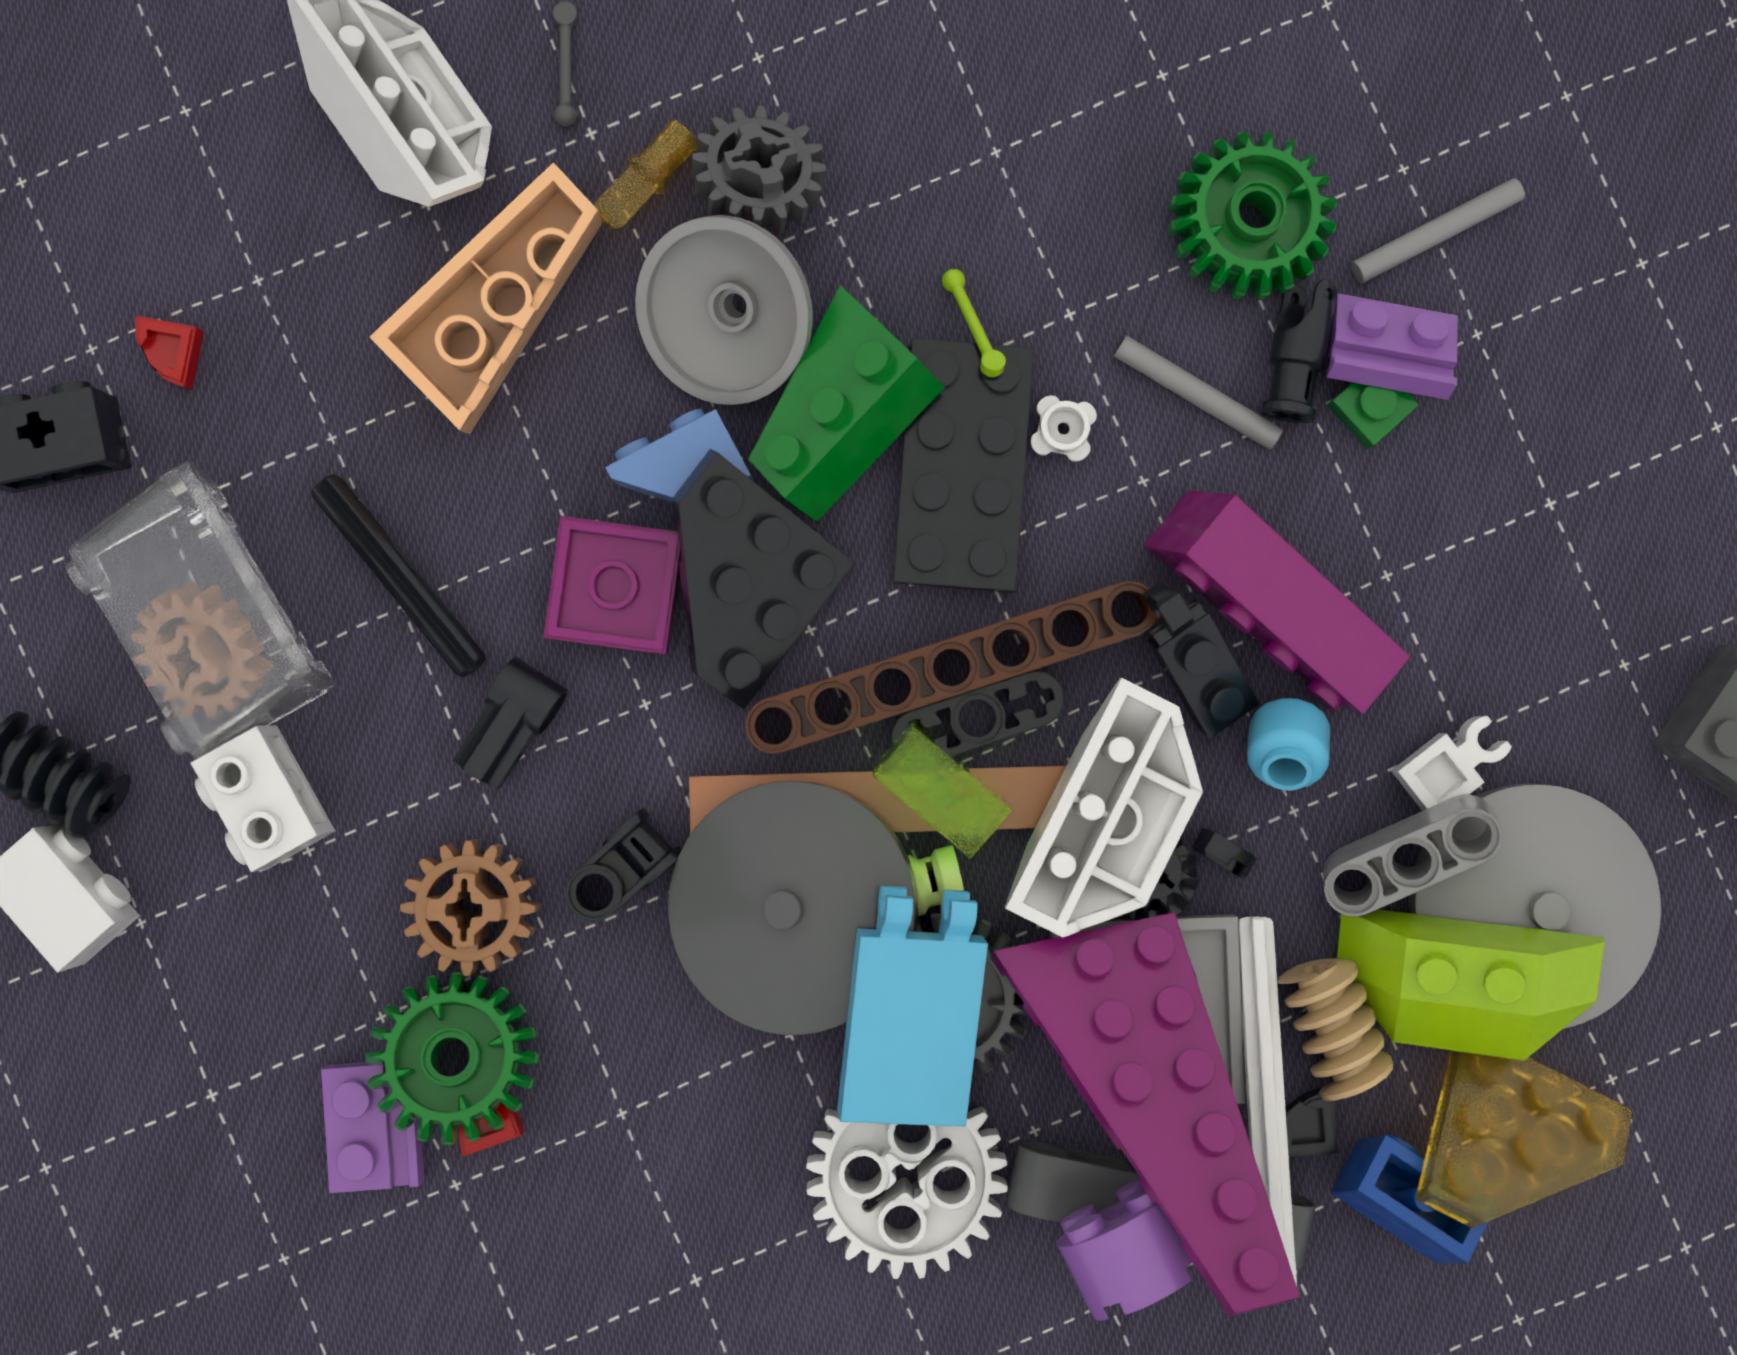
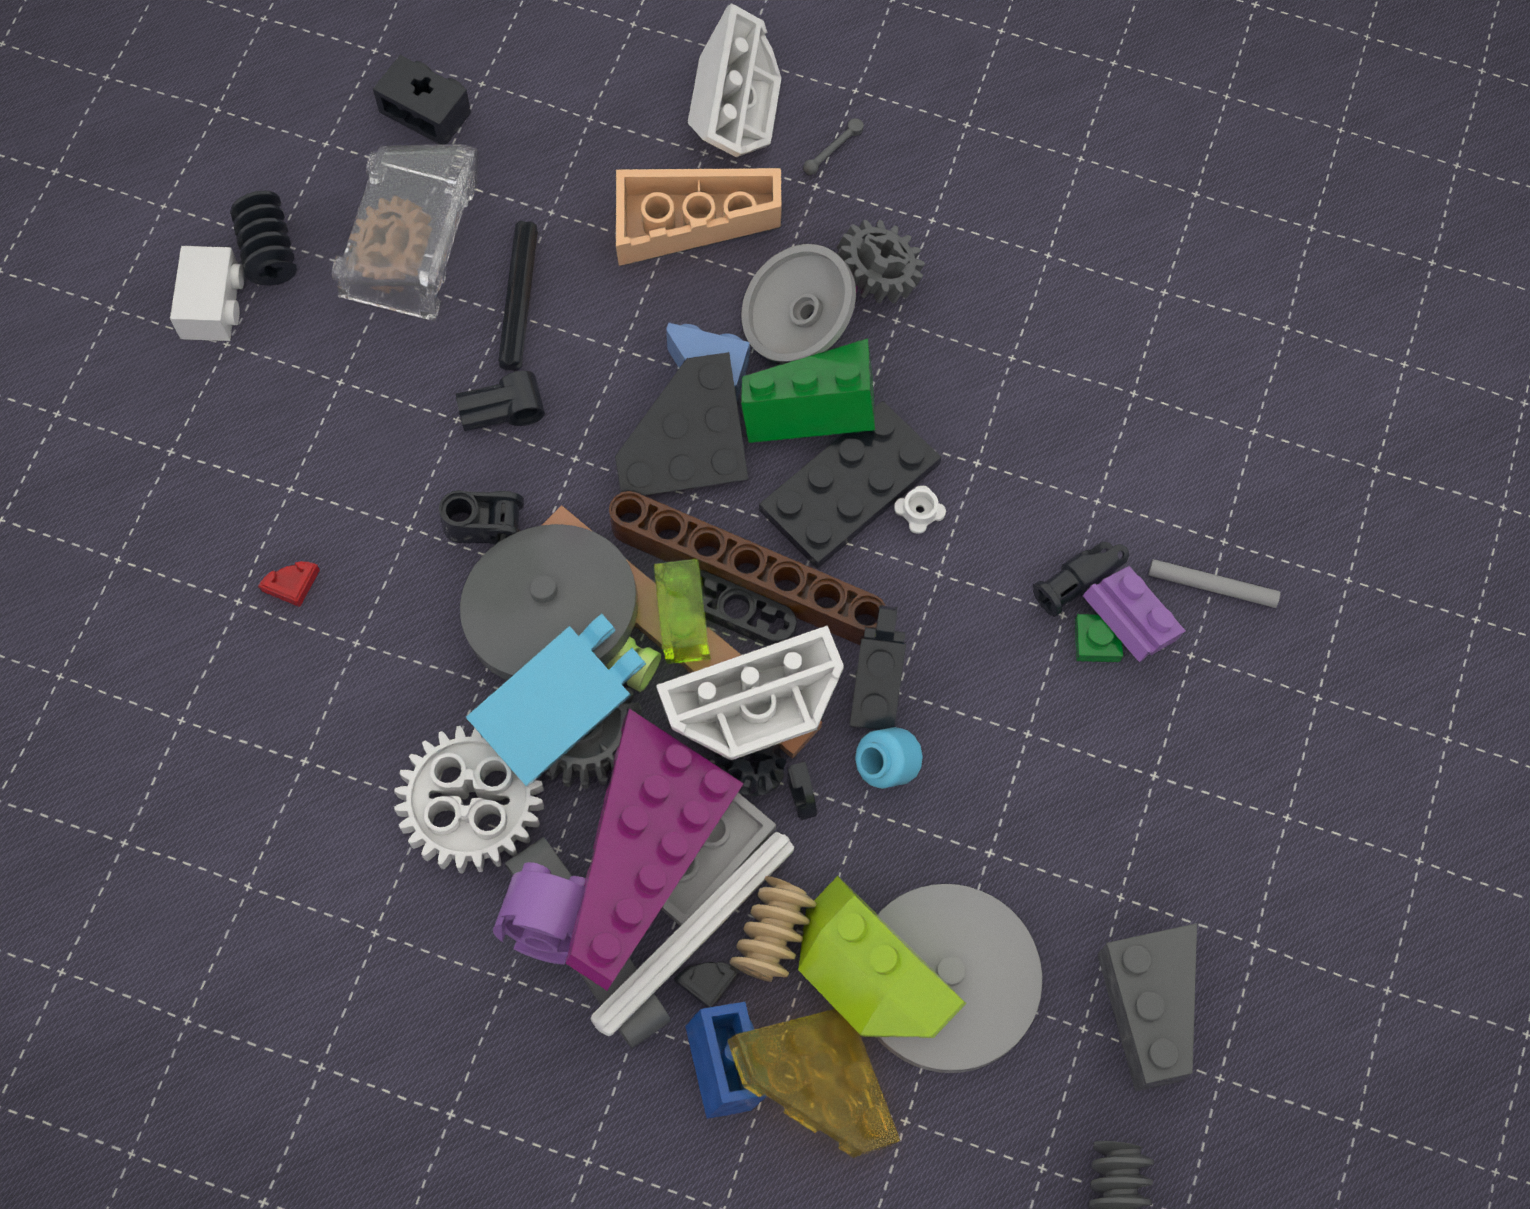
camera: 45 degrees right, 20 degrees down
(170, 349) = (518, 112): red tile -> none
(261, 798) = (346, 333): white brick -> none
(361, 1140) = (231, 533): medium lavender plate -> none
(414, 1052) = (302, 552): green gear -> none
(469, 932) = (391, 463): medium nougat gear -> none
(613, 585) = (614, 386): magenta plate -> none
(645, 175) = (820, 221): clear yellow axle -> none
(992, 360) = (911, 439): lime hinge -> none
(1198, 393) = (1009, 553): light grey bar -> none
(1275, 186) = (1113, 514): green gear -> none
(1277, 599) = (951, 681): magenta wedge -> none
(1428, 828) = (884, 856): light grey beam -> none
(1447, 768) = (961, 855): white plate -> none

